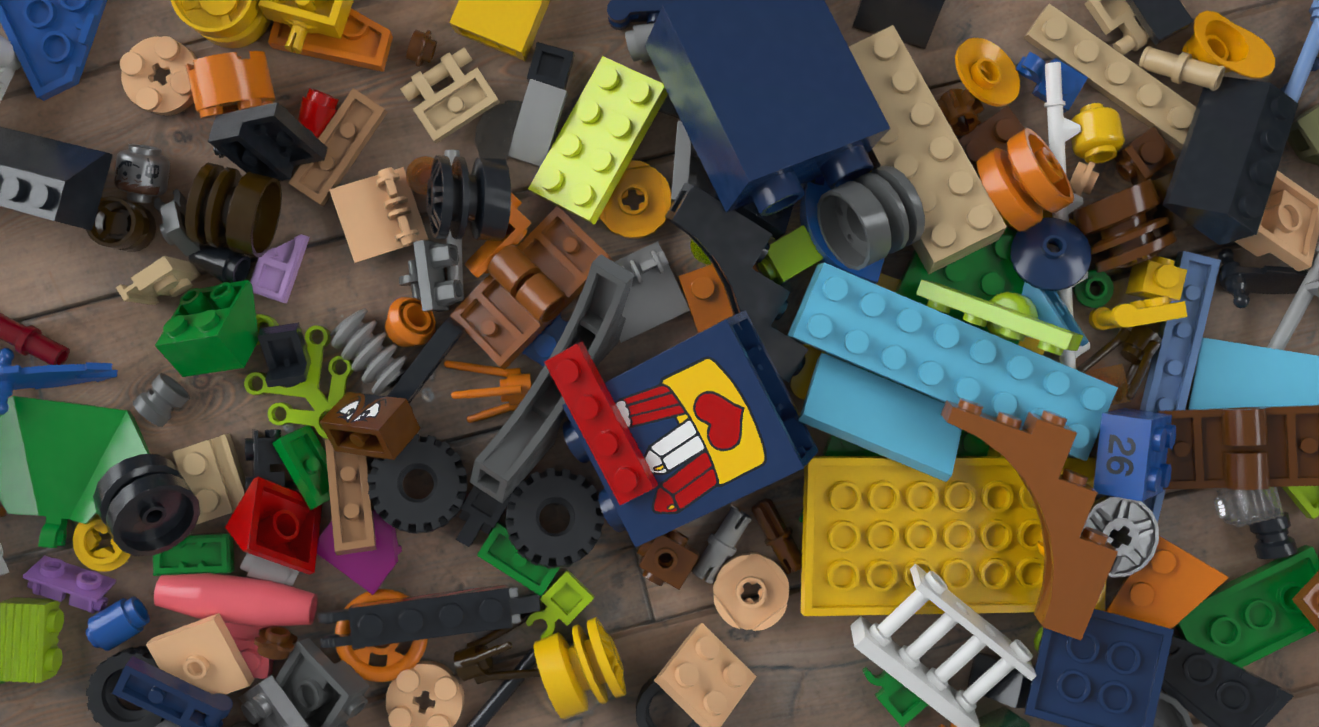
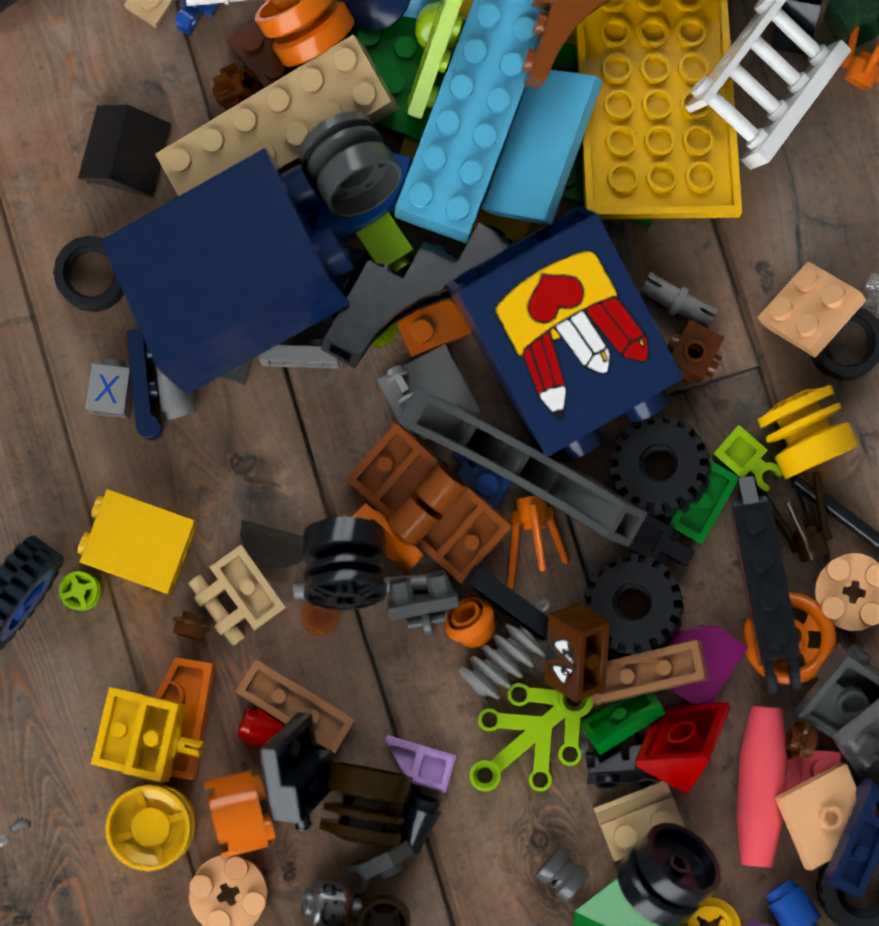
camera: 90 degrees left, 5 degrees down
(163, 277) = (440, 871): tan plate -> none
(197, 555) = (718, 829): green plate -> none
(211, 329) = (487, 821): green slope -> none
(268, 570) = (726, 755): light grey cone -> none
(285, 355) = (510, 745): black bracket -> none
(378, 214) = (362, 661): light nougat hinge -> none
(537, 122) = (263, 504): light grey slope -> none
(551, 65) = (205, 494): black plate -> none
(598, 139) = (278, 441): neon yellow plate -> none
(601, 423) = (563, 414): red plate -> none
(651, 212) = (318, 392): light orange plate -> none
(746, 613) = (723, 248): light nougat plate -> none
(778, 535) = (666, 245): reddish brown axle -> none
(896, 697) = (818, 122): green plate -> none
(987, 72) = (195, 61): light orange dish -> none

